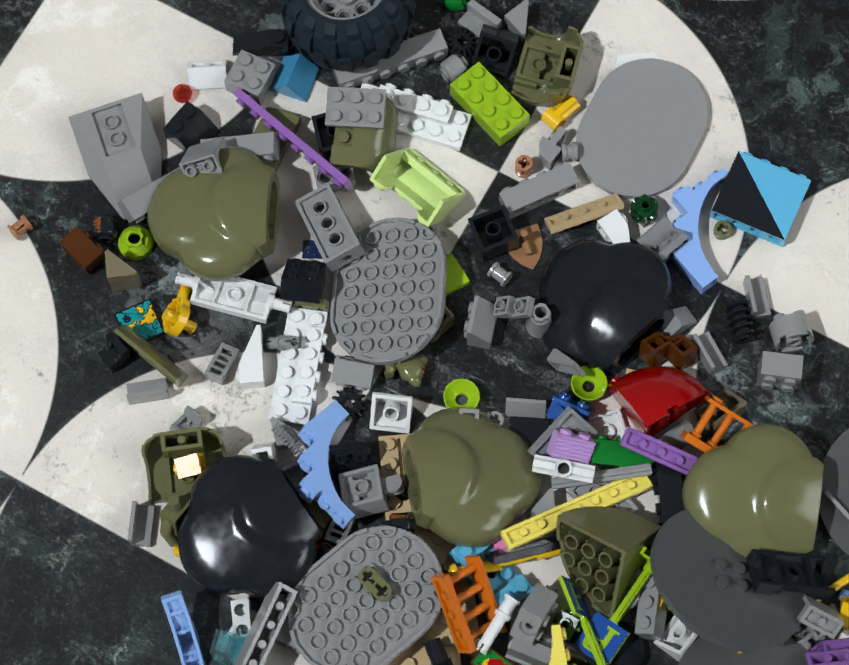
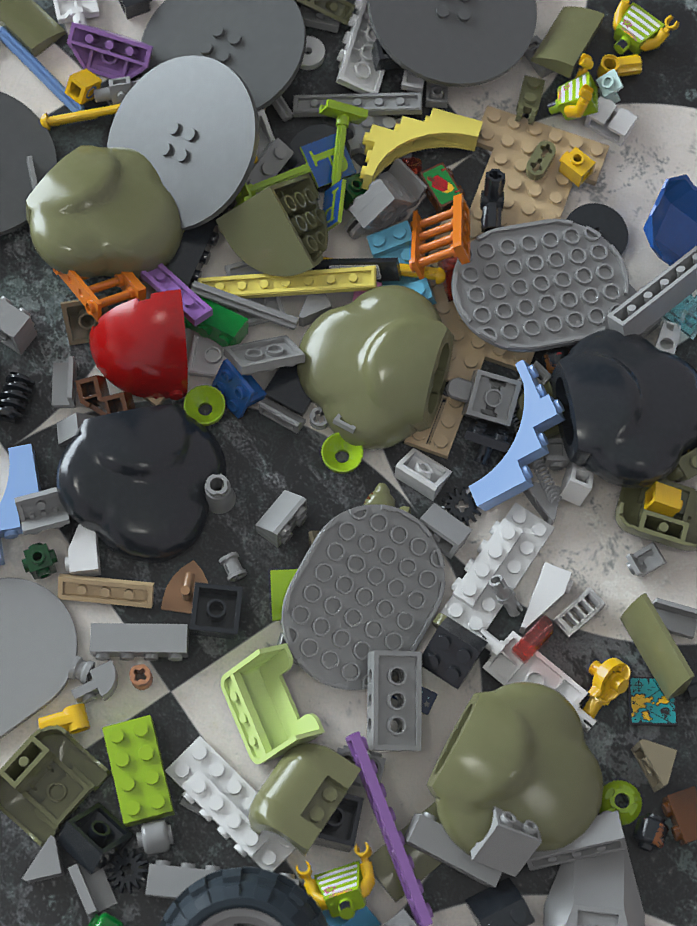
camera: 160 degrees left, 0 degrees up
(244, 319) = (533, 640): none -> clear red brick
(306, 91) = (342, 888): none -> torso
(355, 108) = (301, 813): light grey plate -> none
(372, 587) = (530, 286): olive beam -> none
(401, 521) = (470, 347): black head -> none
(502, 615) = (413, 213): white pin -> none
(513, 307) = (240, 507): light grey slope -> none
(550, 465) = (288, 327): white piece -> none
(564, 363) = (215, 428): light grey slope -> none
(571, 446) = (260, 339): lavender brick -> none
(771, 572) = (137, 131): black piece -> none
(820, 617) = (112, 80): light grey panel -> none

